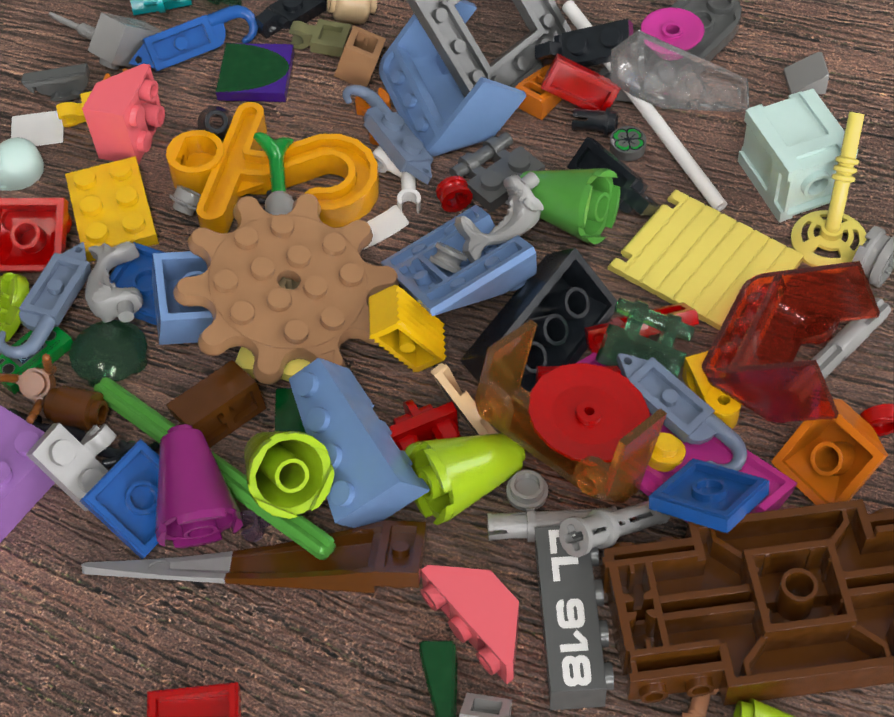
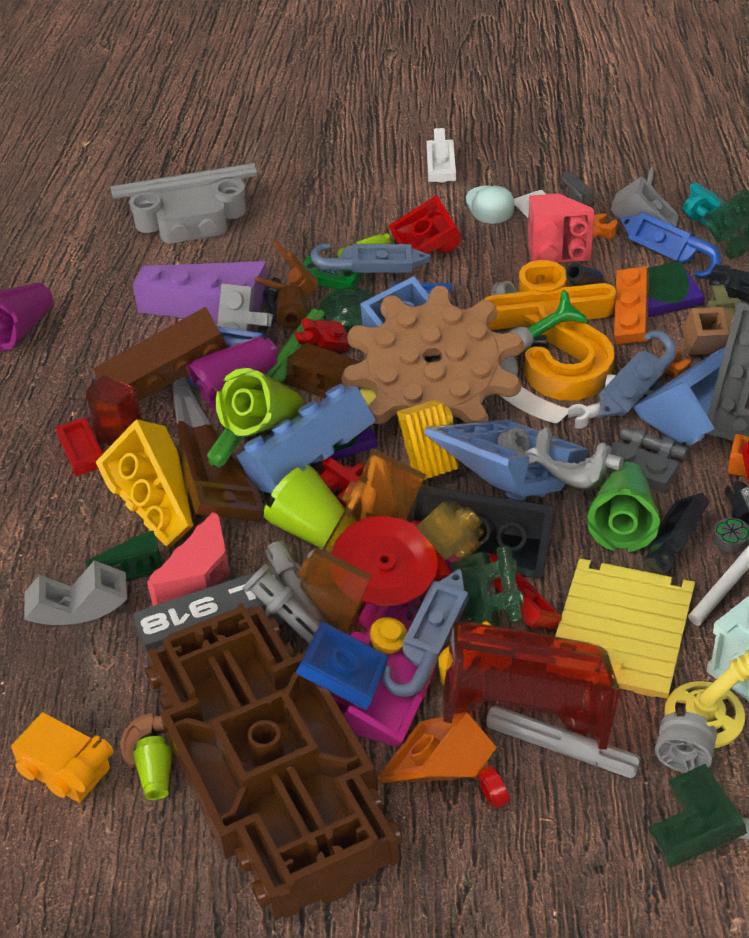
camera: 70 degrees right, 10 degrees down
(105, 298) = (388, 277): light grey animal -> none
(111, 205) = (479, 264): yellow plate -> none
(120, 564) = (165, 355): none -> reddish brown brick
(156, 382) = (327, 334): none -> red plate
(185, 643) = (112, 408): none -> clear red brick
(279, 102) = (631, 305): none -> orange plate
(311, 635) = (149, 478): none -> yellow wedge
(454, 194) = (597, 433): red bush -> none
(573, 338) = (452, 530): none -> clear yellow brick

